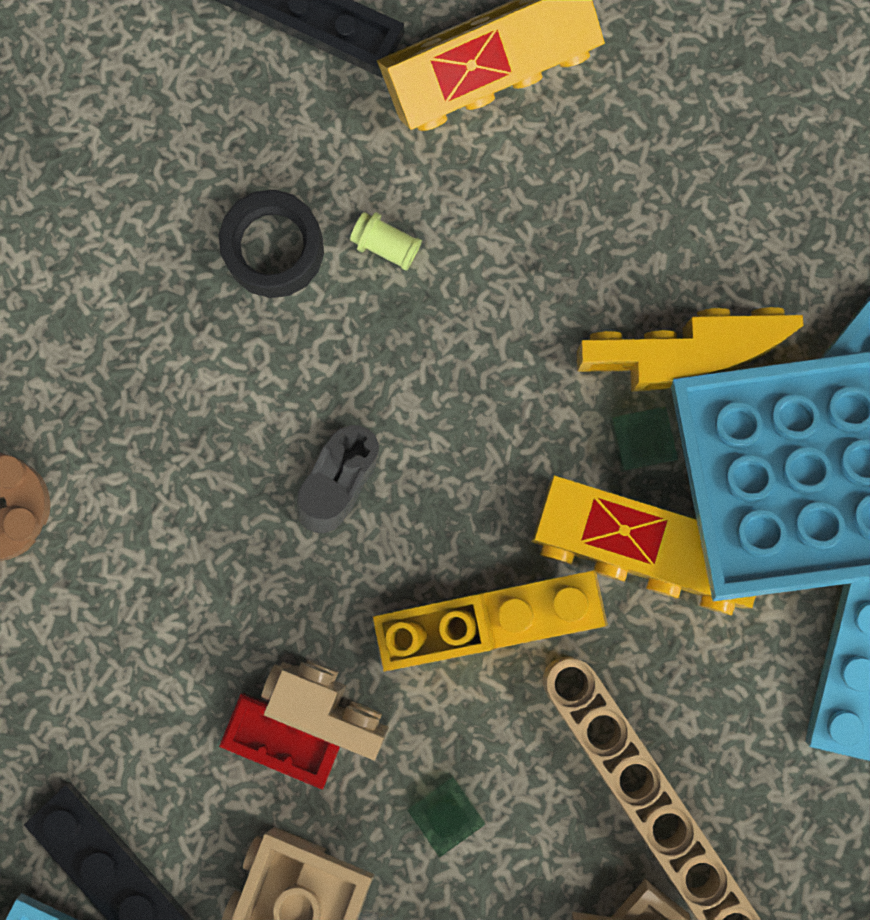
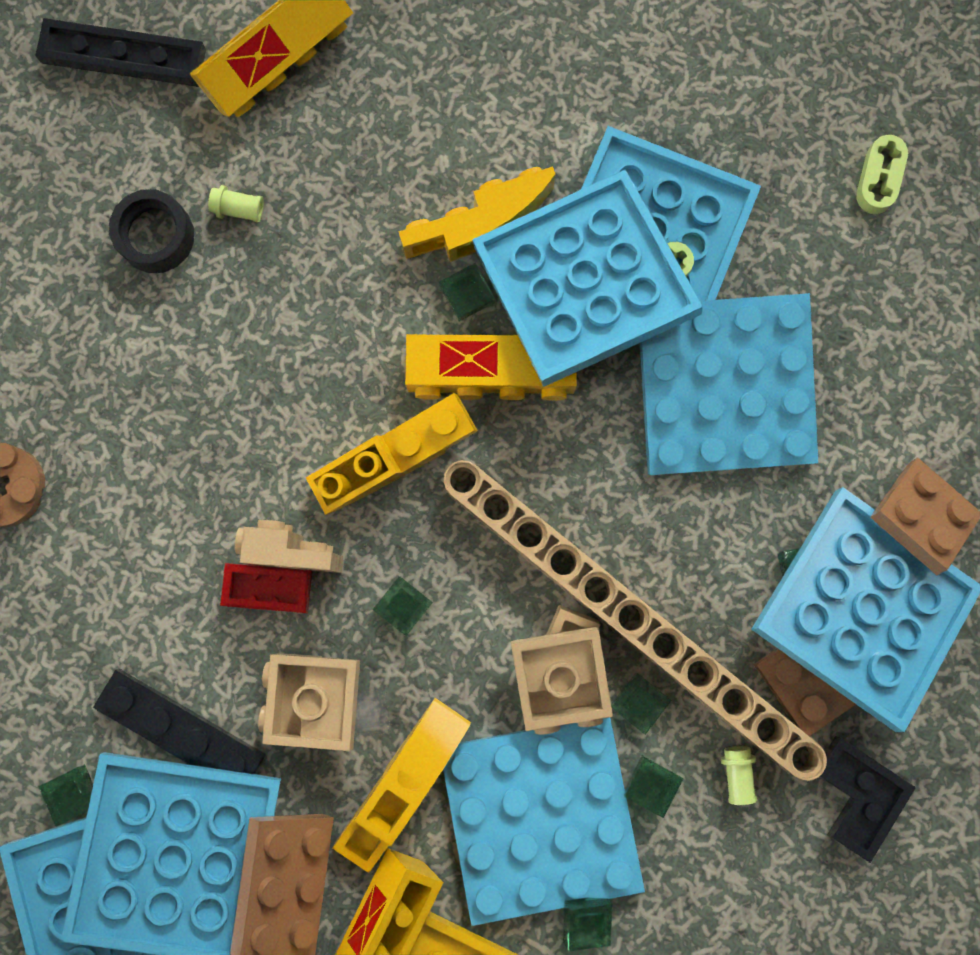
camera: 20 degrees left, 0 degrees up
(352, 457) = (250, 387): dark grey piece -> none

